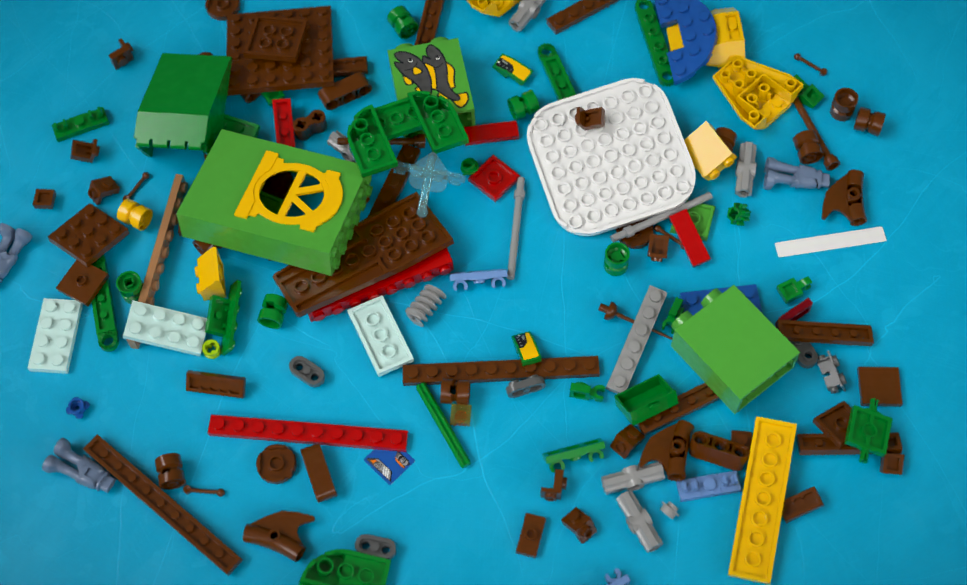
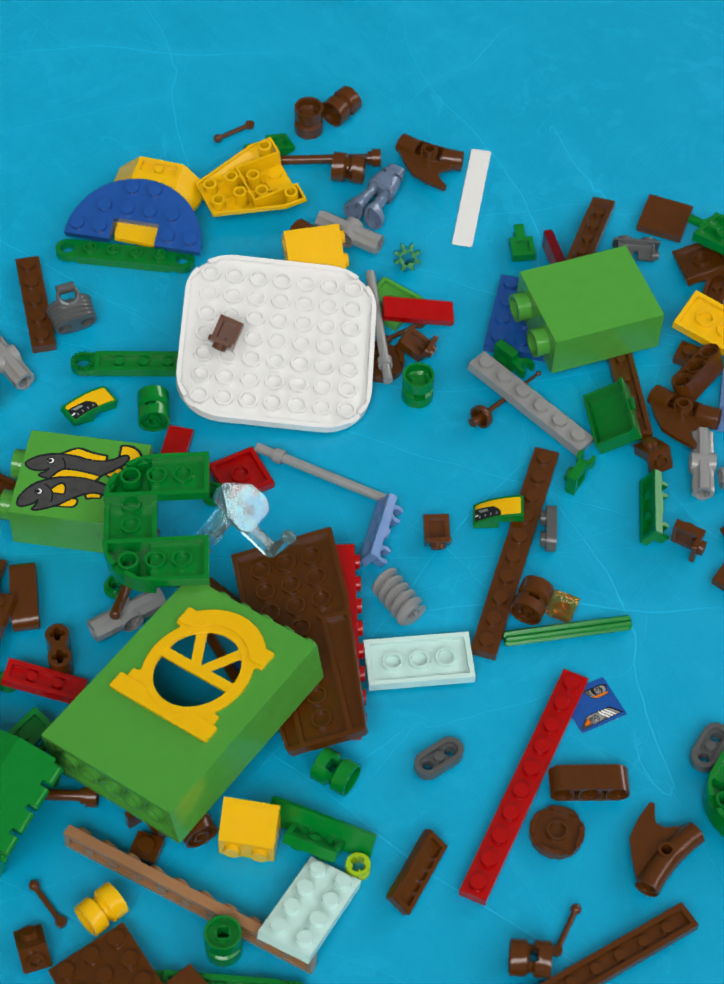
camera: 75 degrees left, 10 degrees down
(492, 313) = (436, 531): none -> reddish brown bracket
(582, 30) = (71, 314): none -> dark grey piece

